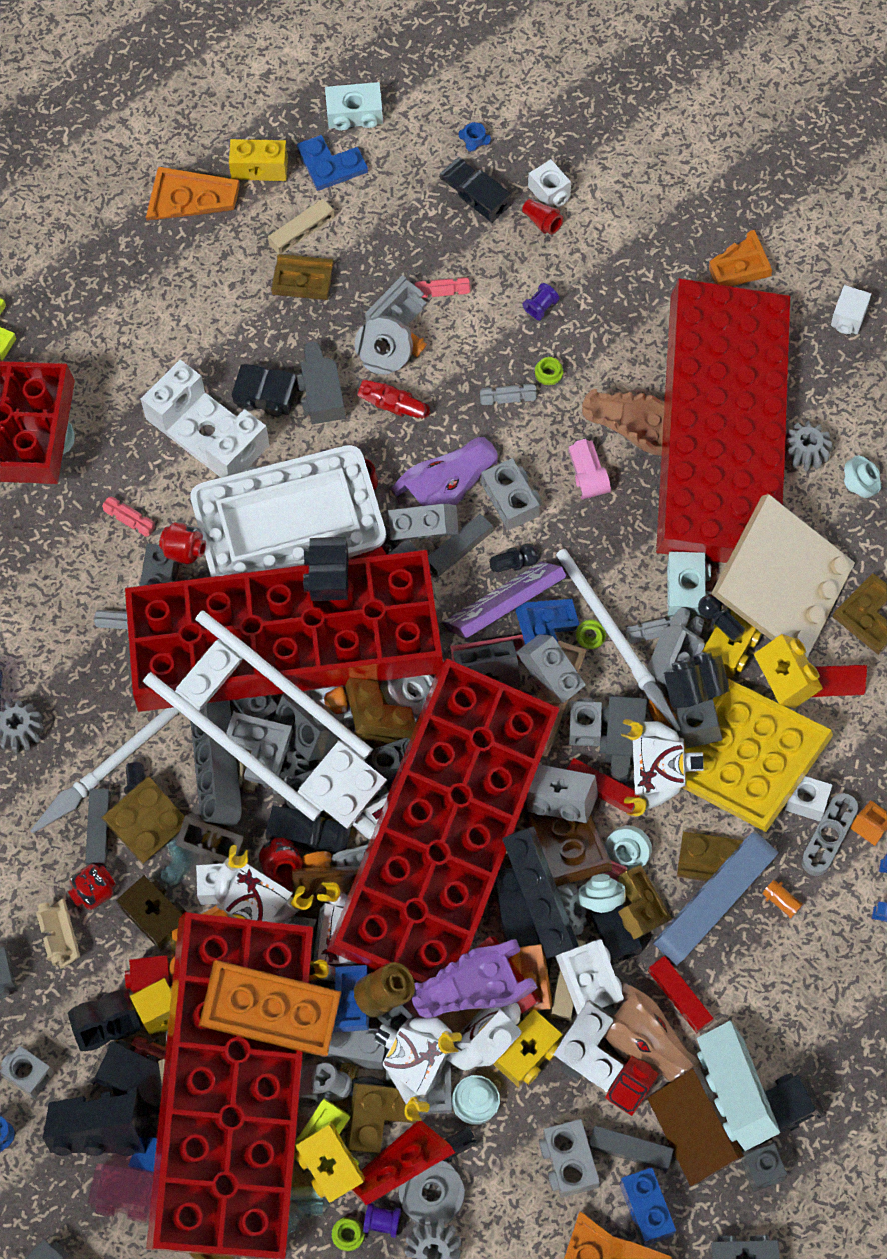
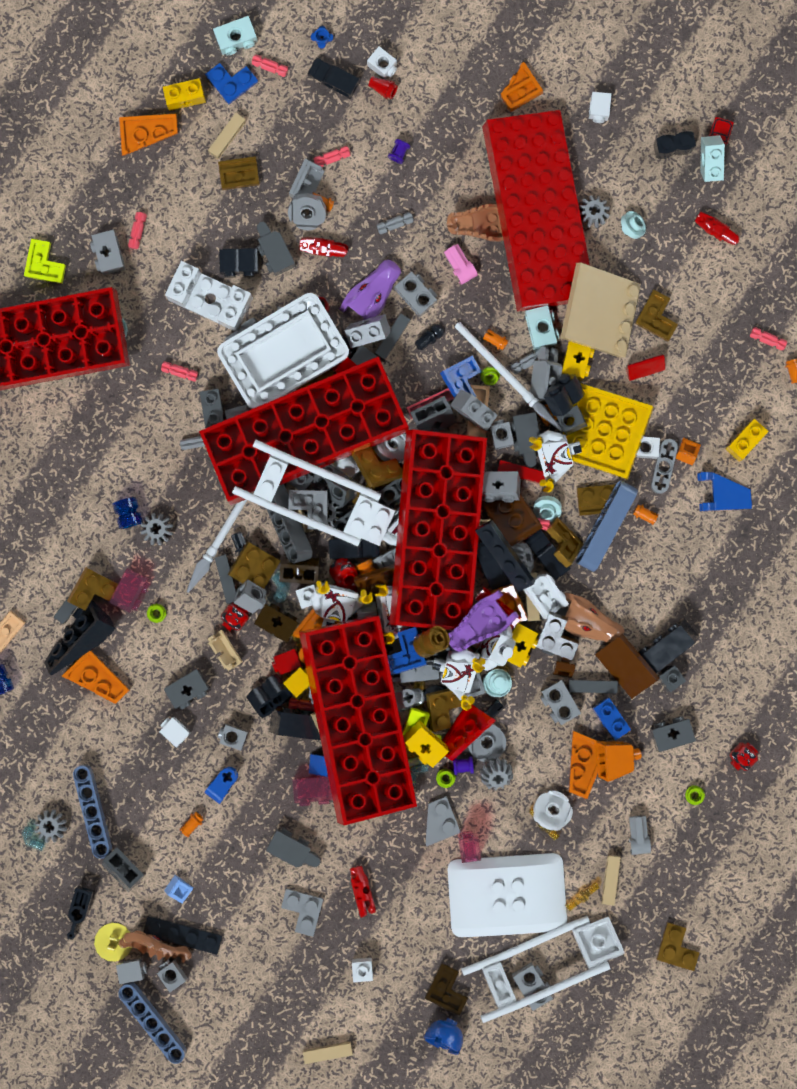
camera: 15 degrees left, 20 degrees up
(82, 347) = (114, 261): none -> light grey brick
(98, 1125) = (285, 759): black wedge -> none
(125, 860) = (250, 596): none -> light grey brick
(133, 317) = (137, 230): none -> coral axle
(182, 543) = (223, 389): red head -> none
(270, 1008) = (369, 672): orange tile -> none
(327, 569) = (322, 388): black brick -> none
(336, 700) = (349, 465): orange piece -> none
(390, 154) = (269, 65): none -> coral axle
(504, 599) = (431, 368): medium lavender tile -> none
(548, 363) = (419, 194): lime plate -> none
(590, 1105) = (564, 668): none -> reddish brown tile
(602, 893) = (540, 545): light aqua plate -> none
(613, 586) = (495, 339): none -> orange pin
(632, 1085) = (586, 652): red brick -> none
(680, 994) = (599, 588): red piece -> none
(711, 608) = (571, 350): black axle -> none
(737, 1086) = (646, 639): light aqua brick -> none
(788, 670) = (618, 381): yellow brick -> none

